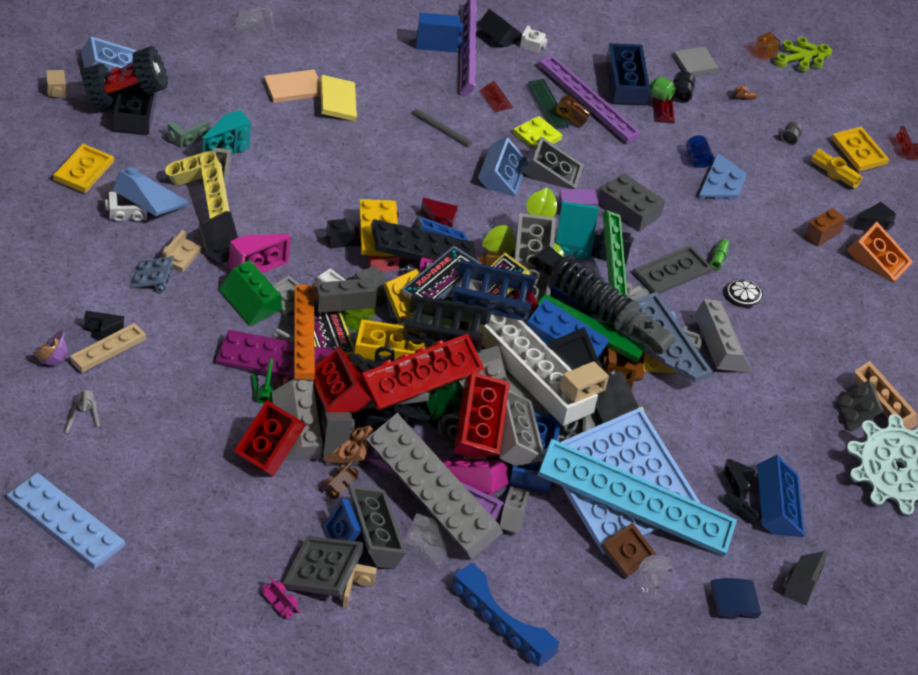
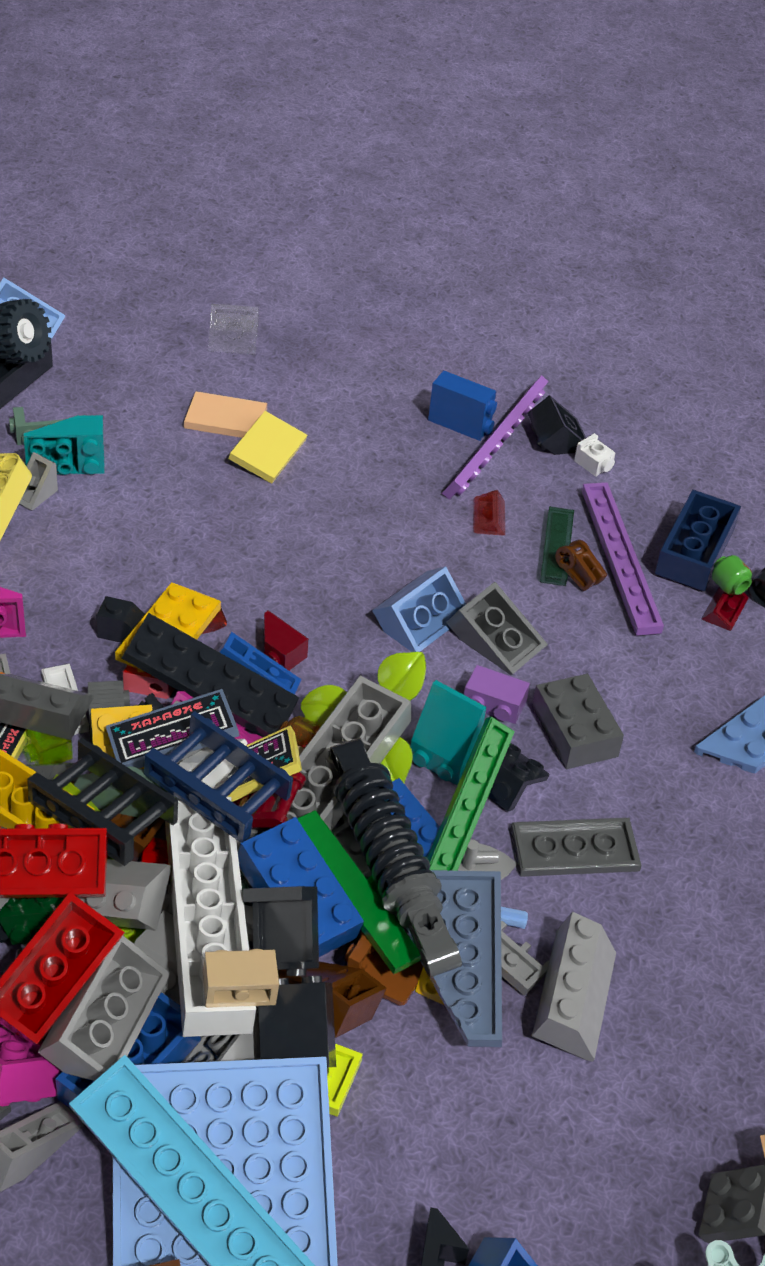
camera: 30 degrees right, 0 degrees up
(442, 127) = (383, 529): dark grey bar -> none
(536, 128) = (515, 577): neon yellow plate -> none
(699, 151) = (735, 682): clear blue wheel -> none
(719, 254) = (666, 848): bright green pin -> none
(744, 293) = (668, 925): dish -> none

